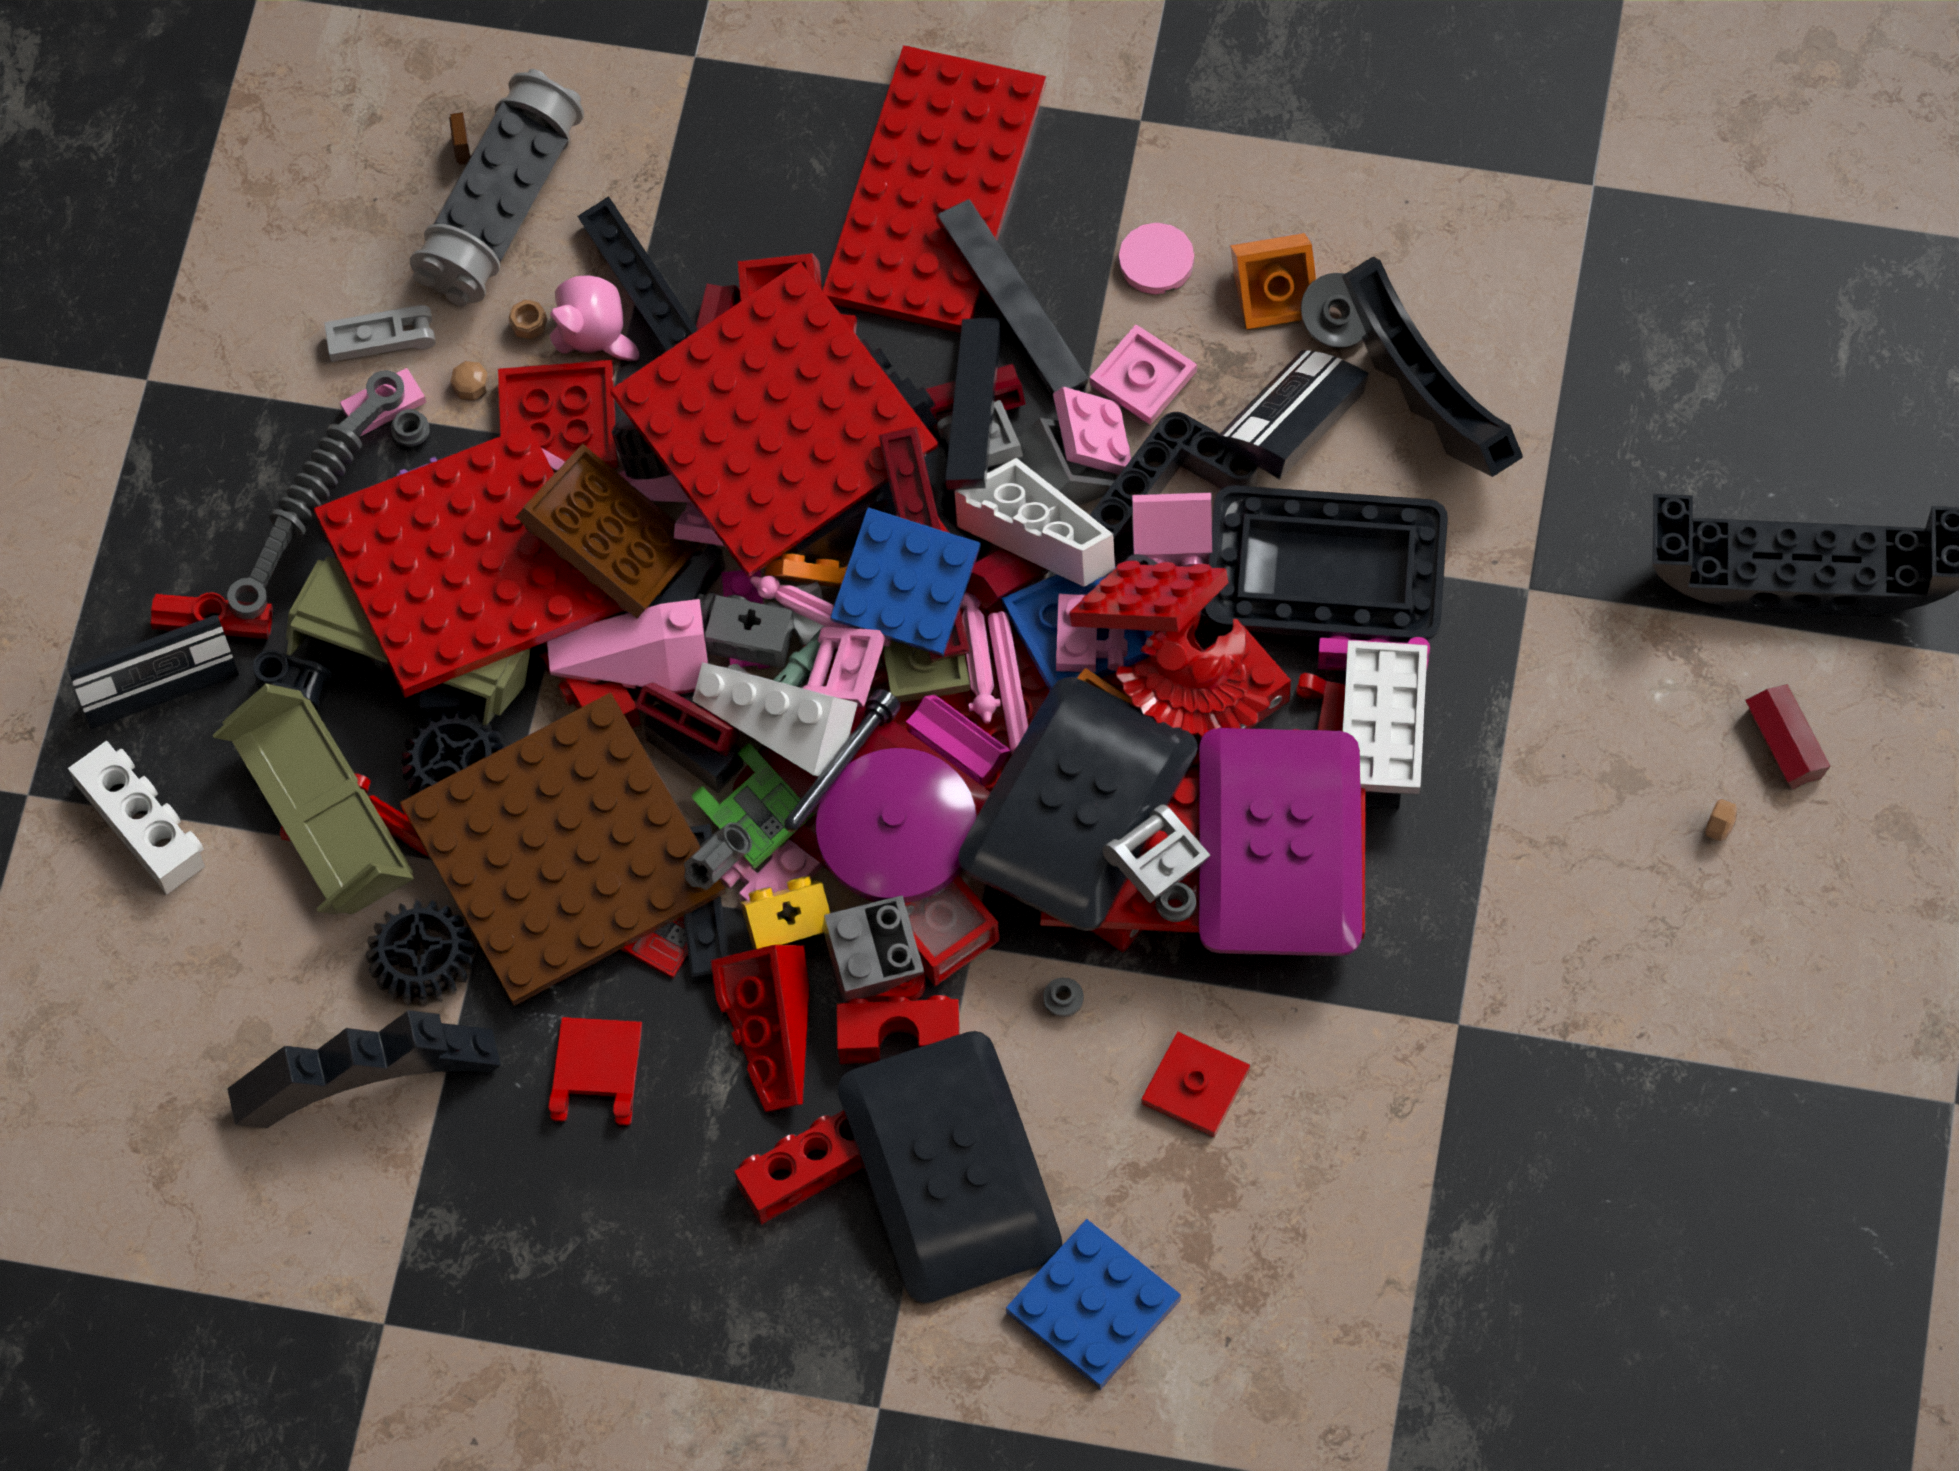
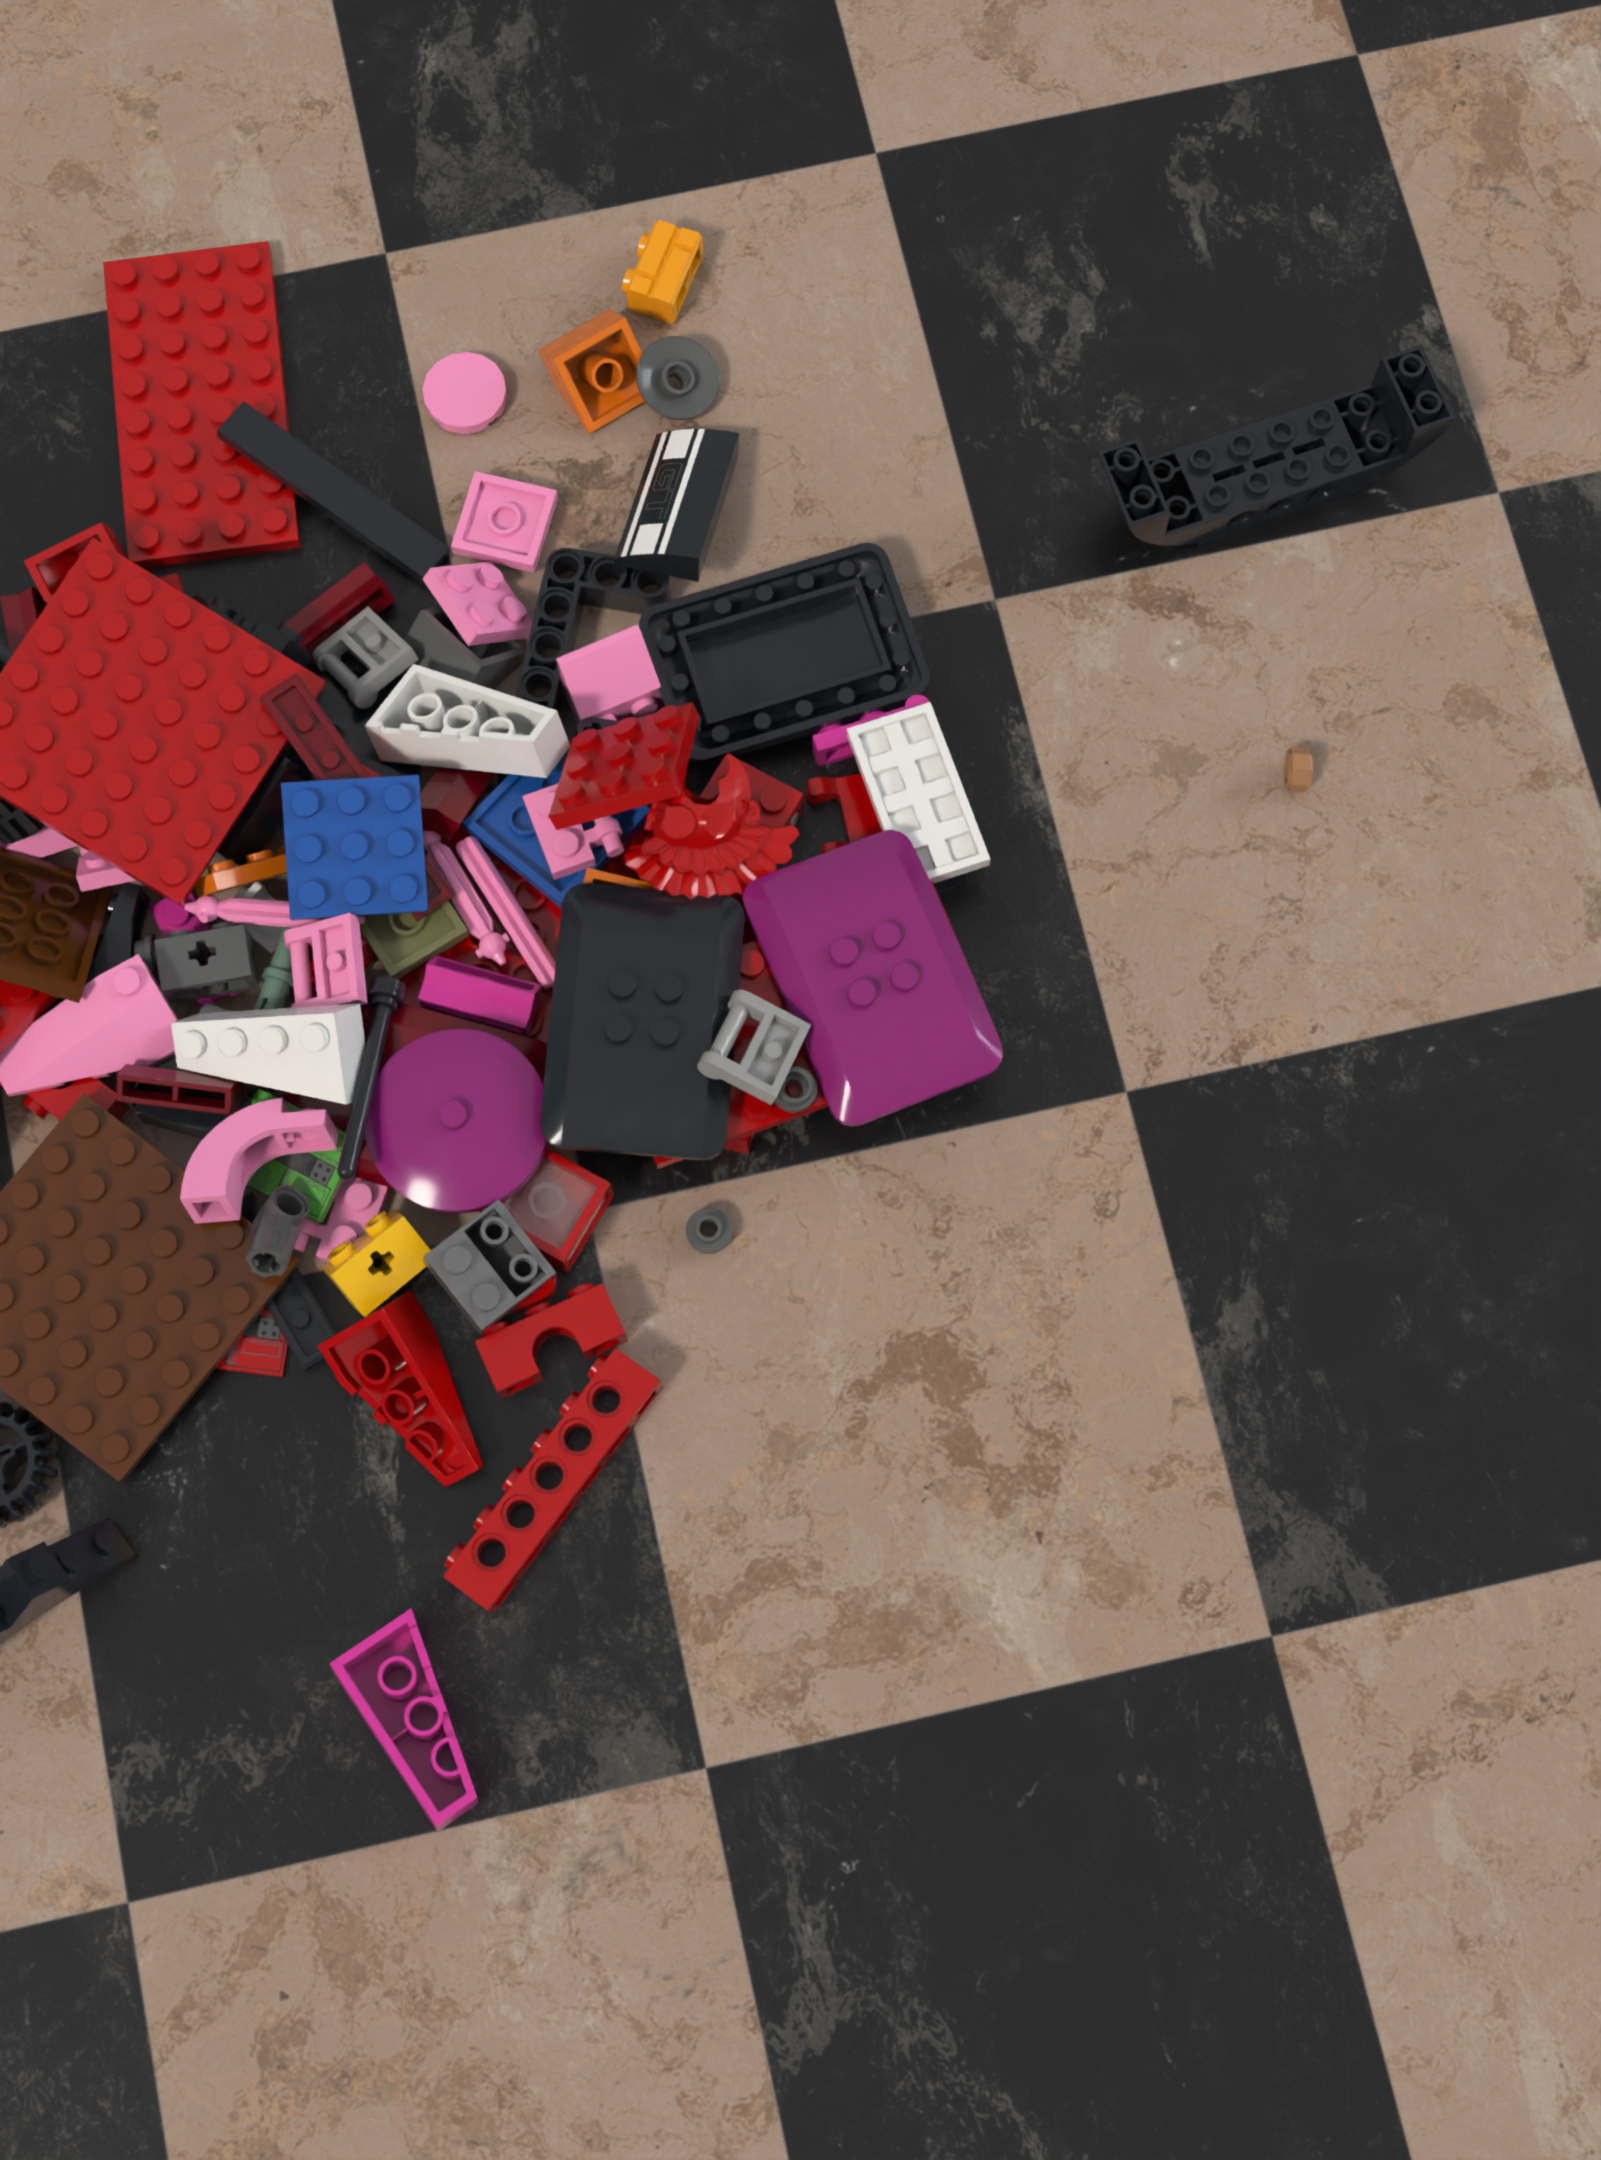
camera: 25 degrees left, 10 degrees up
(596, 1060) = (237, 1506): red flag -> none
(660, 1260) = (403, 1707): none -> dark pink wedge
(719, 779) = (240, 1146): none -> bright pink arch
(949, 1166) = (671, 1473): black wedge -> none
(973, 404) = (343, 623): black tile -> none
(1093, 1304) = (883, 1556): blue plate -> none
(1195, 1084) = (887, 1269): red plate -> none
(1365, 219) = (663, 272): none -> light orange brick
(1431, 391) = (809, 427): black arch -> none
(1788, 735) = (1325, 653): dark red piece -> none

